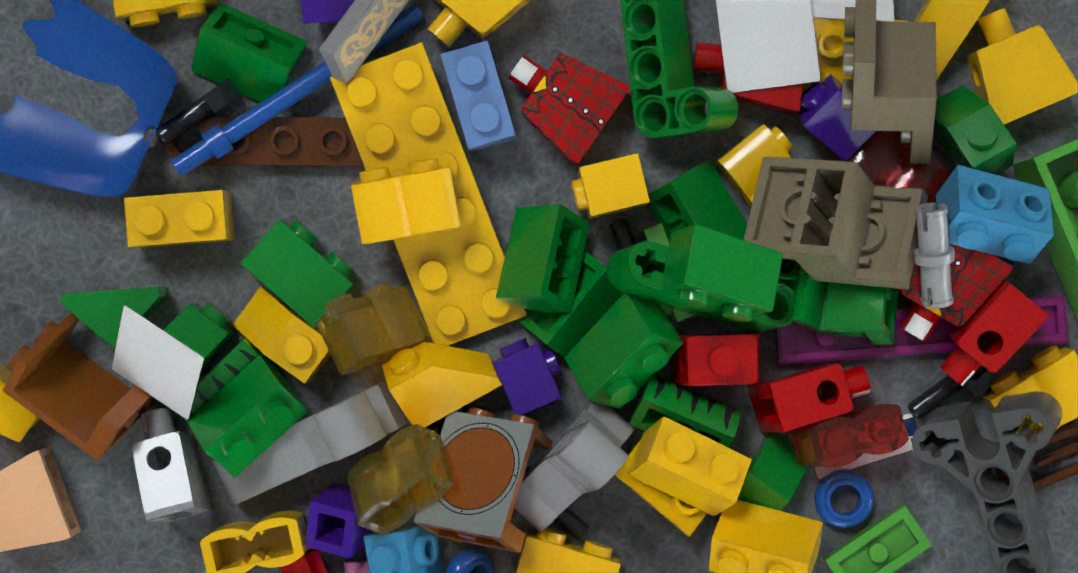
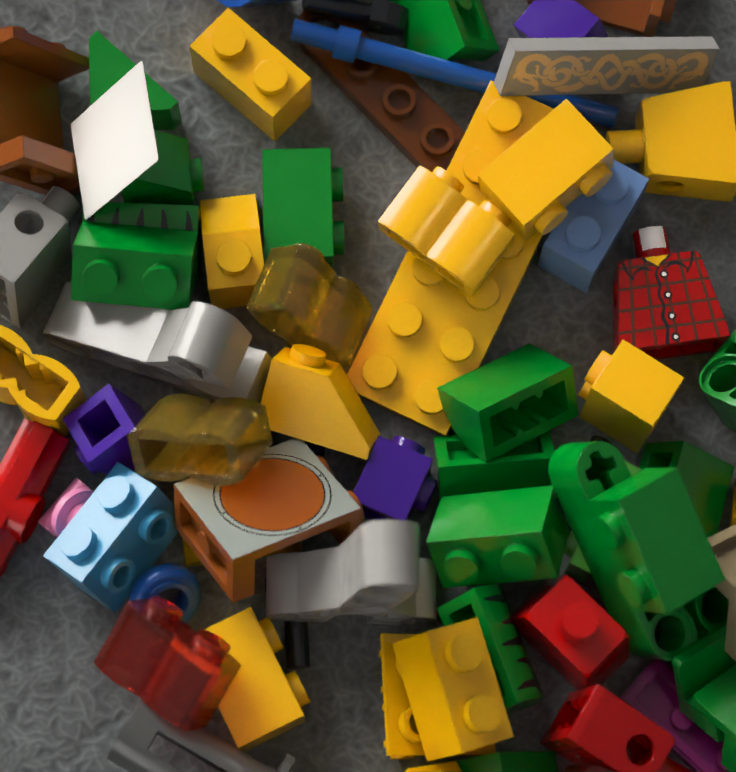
camera: 40 degrees right, 15 degrees down
(427, 107) = (548, 171): none -> yellow brick

